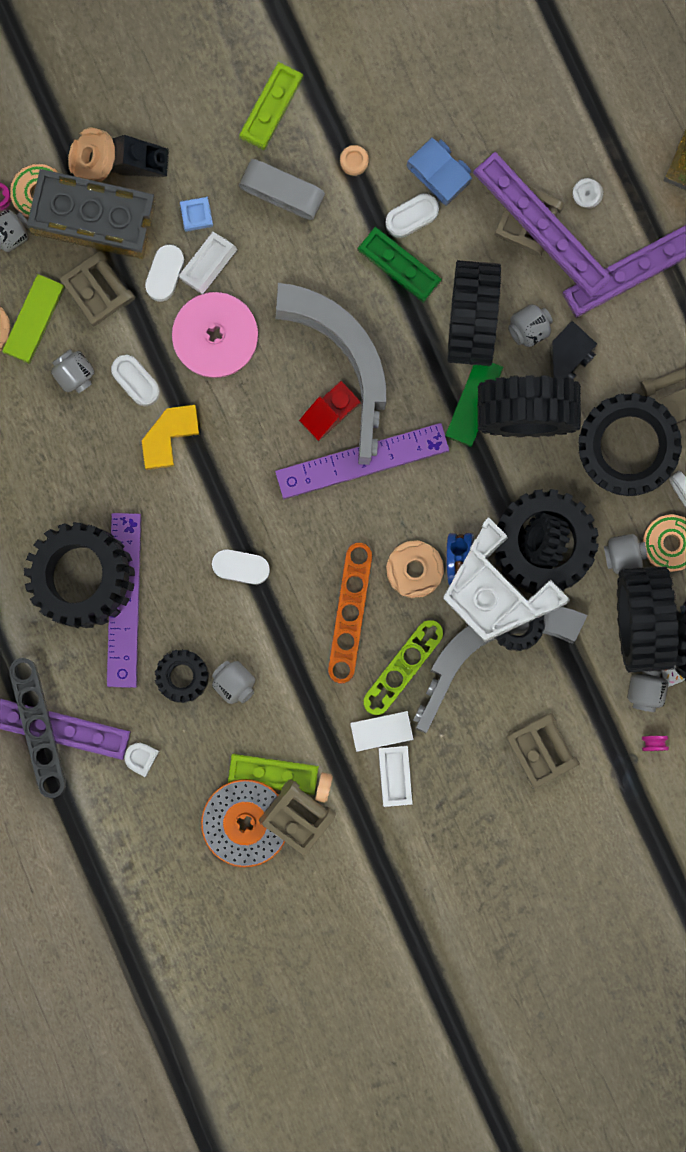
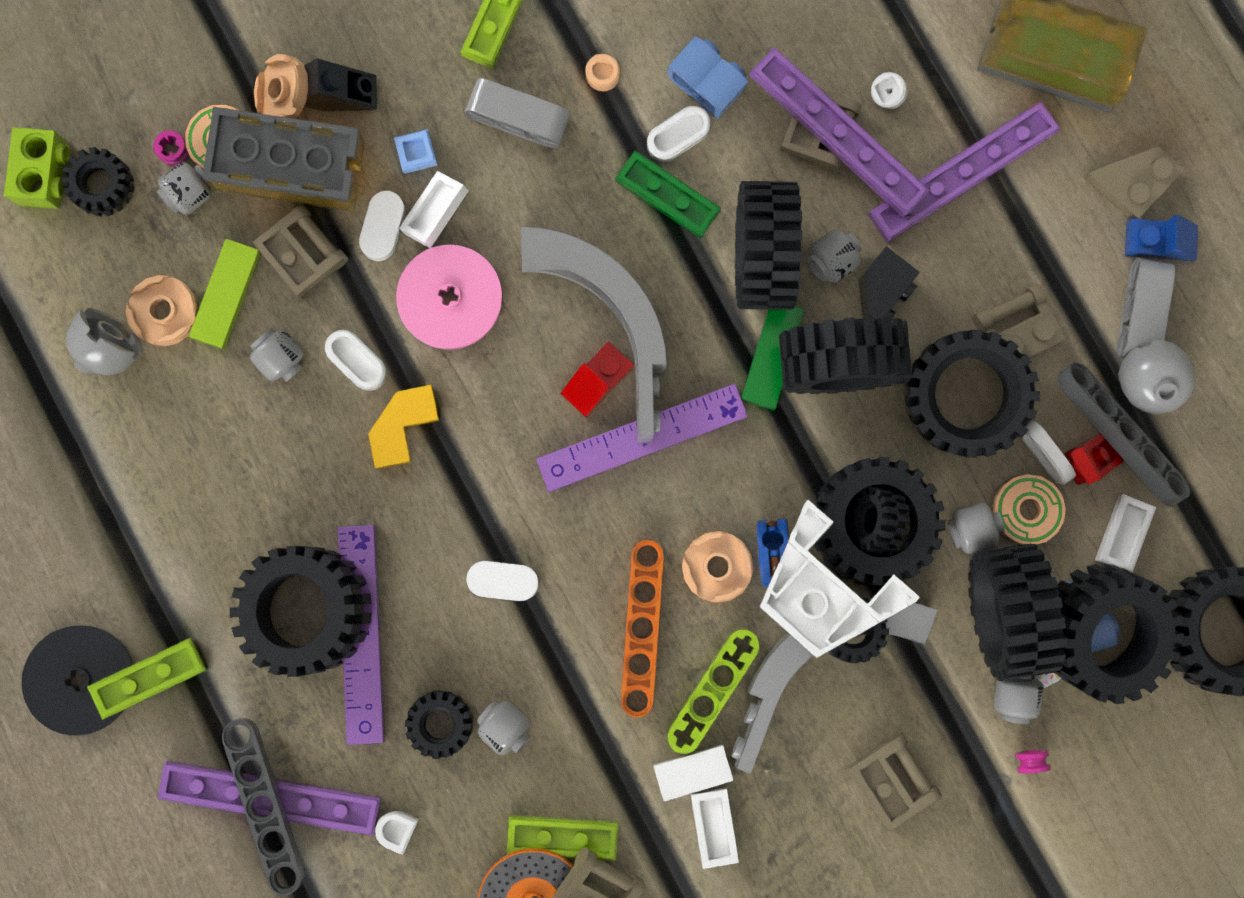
camera: 10 degrees left, 0 degrees up
(324, 787) = (627, 851): light nougat tile -> none

